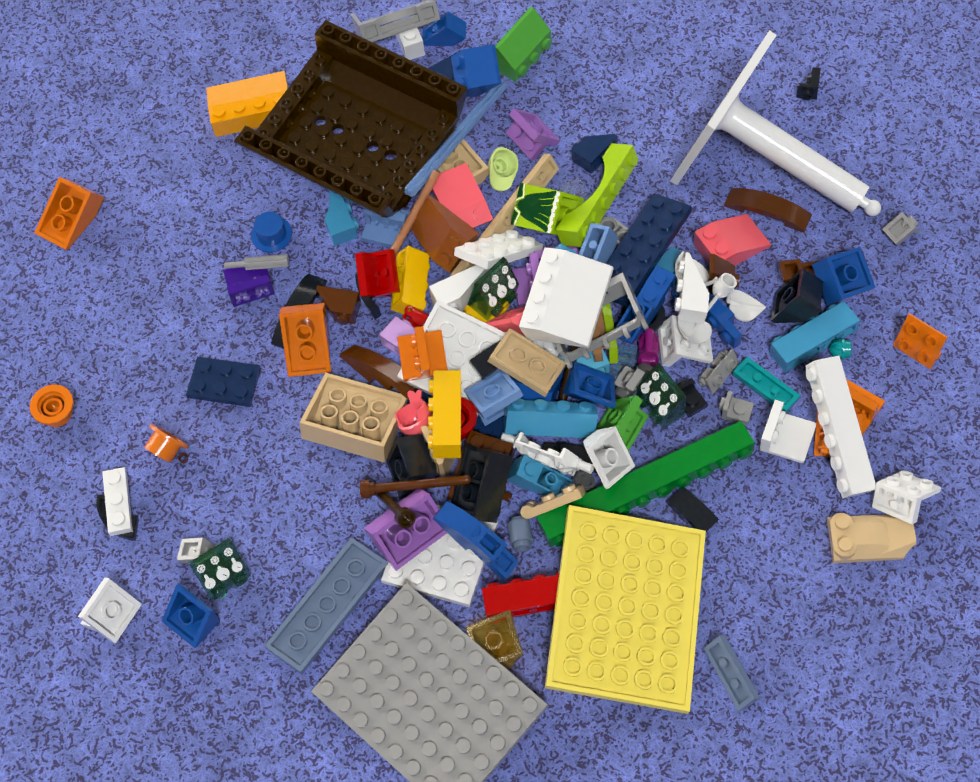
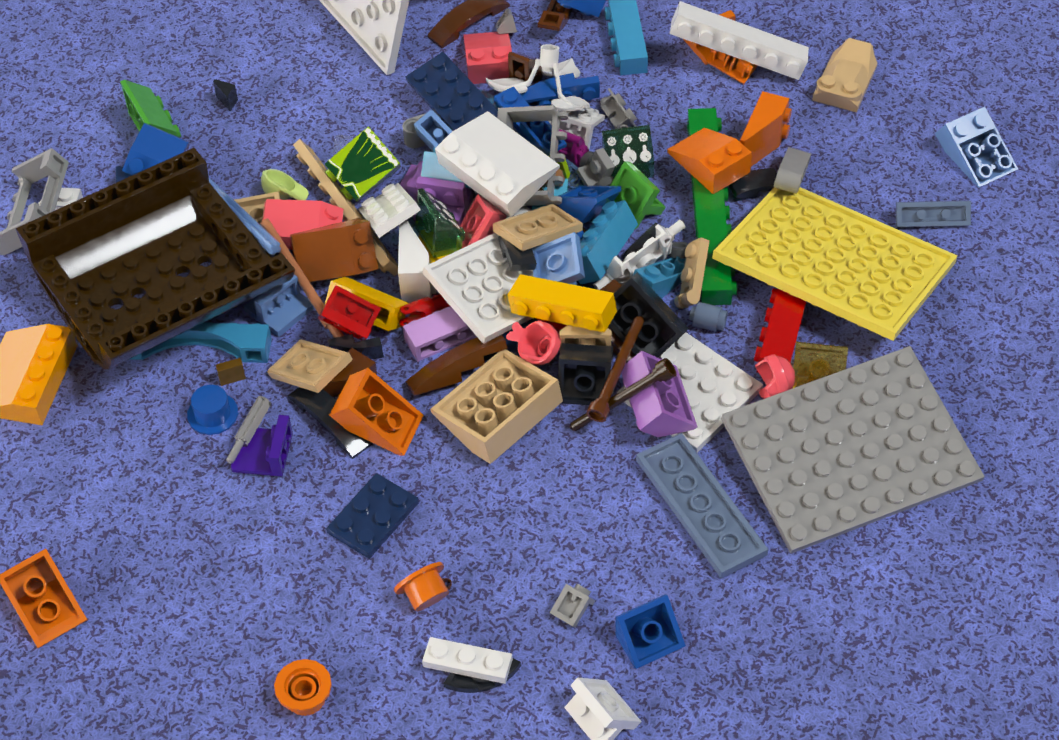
camera: 70 degrees left, 10 degrees down
(220, 570) = (614, 581): slope -> none
(307, 225) = (230, 371): none -> pearl gold tile
(330, 273) = (309, 365): none -> tan tile
(421, 354) = (477, 304): orange bracket -> none
(444, 32) = (80, 170): blue slope -> none
(466, 610) = (776, 374): none -> coral hat
(477, 537) = (699, 341): blue slope -> none
(530, 133) = (258, 152): medium lavender bracket -> none
(578, 84) = (226, 93): none -> black slope
(590, 150) = (314, 113): dark blue slope -> none
(608, 455) = (667, 208): white slope -> none
(618, 165) = (349, 99): lime arch -> none
(684, 461) = (712, 158): none -> orange slope
(693, 296) = (538, 82): white slope -> none
(714, 534) = (792, 170): none -> light grey beam
(736, 409) = (666, 116): light grey bracket -> none
(748, 491) = (767, 125): none -> orange slope
(765, 384) = (655, 86): teal plate -> none
(774, 240) = (506, 23): none -> light grey slope
(787, 434) = (713, 90): white bracket -> none
(798, 298) = (585, 26): black slope -> none
(835, 684) = (976, 147): none -> medium blue slope
(841, 348) = (650, 22): teal plate -> none
(902, 495) = (825, 34): white bracket -> none

